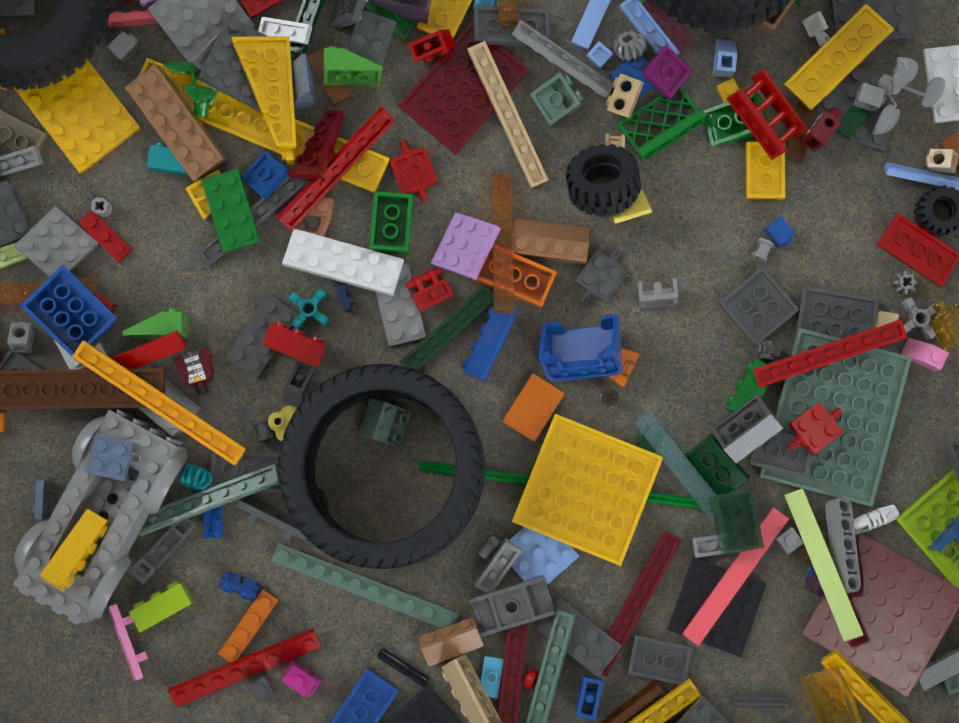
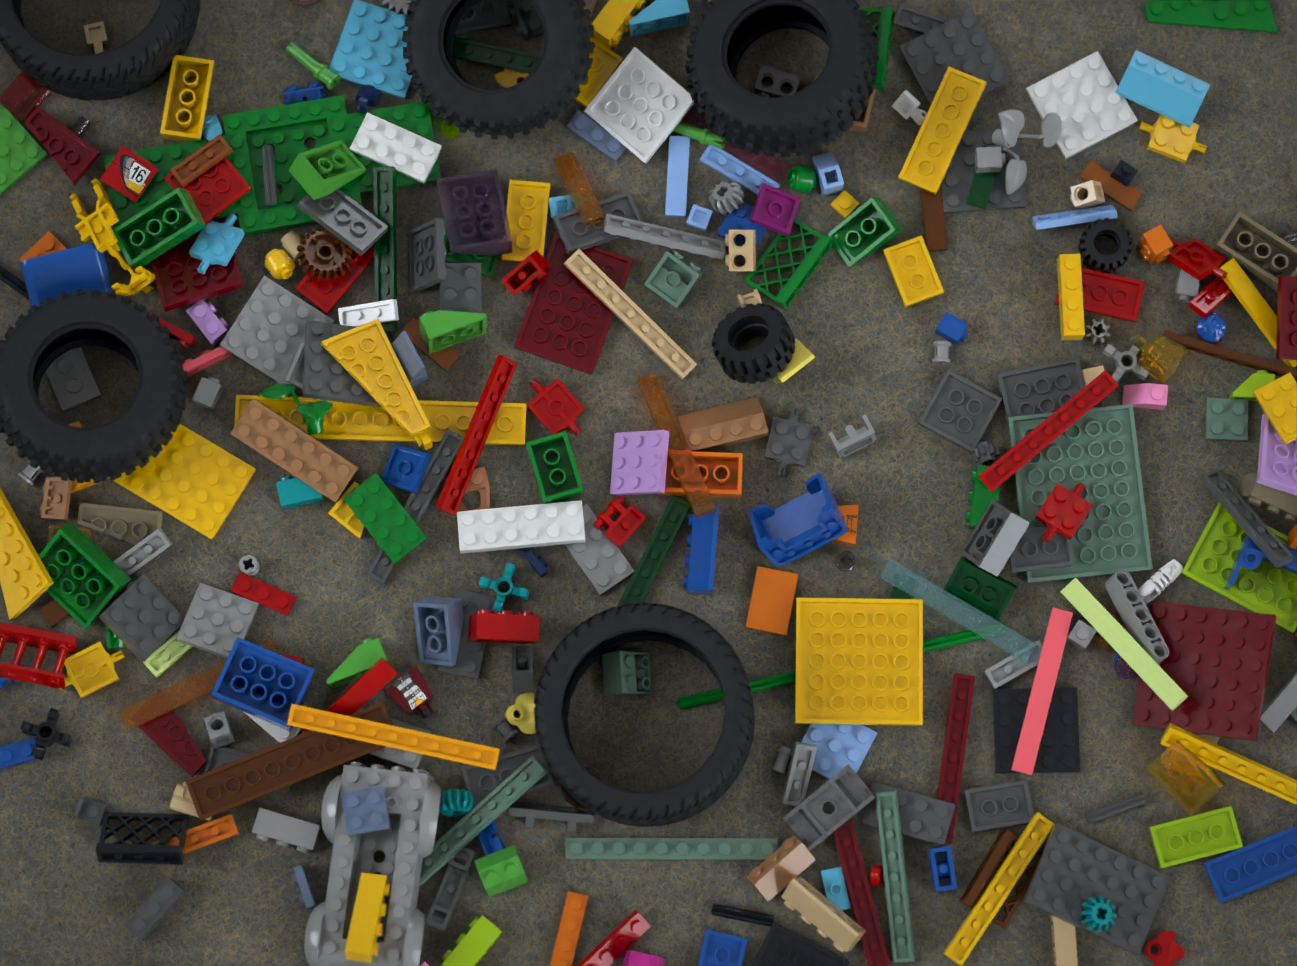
camera: 20 degrees left, 5 degrees down
(44, 445) = (286, 830): none -> light grey brick
(210, 550) = (501, 871): none -> bright green slope
(231, 584) = (533, 898): blue hinge -> none
(239, 322) = (438, 629): none -> sand blue slope
(319, 148) = (452, 420): dark red wing -> none
(700, 54) = (802, 178): none -> green head
(736, 522) = (1020, 634): clear green brick -> none
(757, 124) = (886, 229): red fence -> none
(822, 129) = (951, 214): dark red torso -> none
(894, 244) = (1070, 297): none -> yellow brick

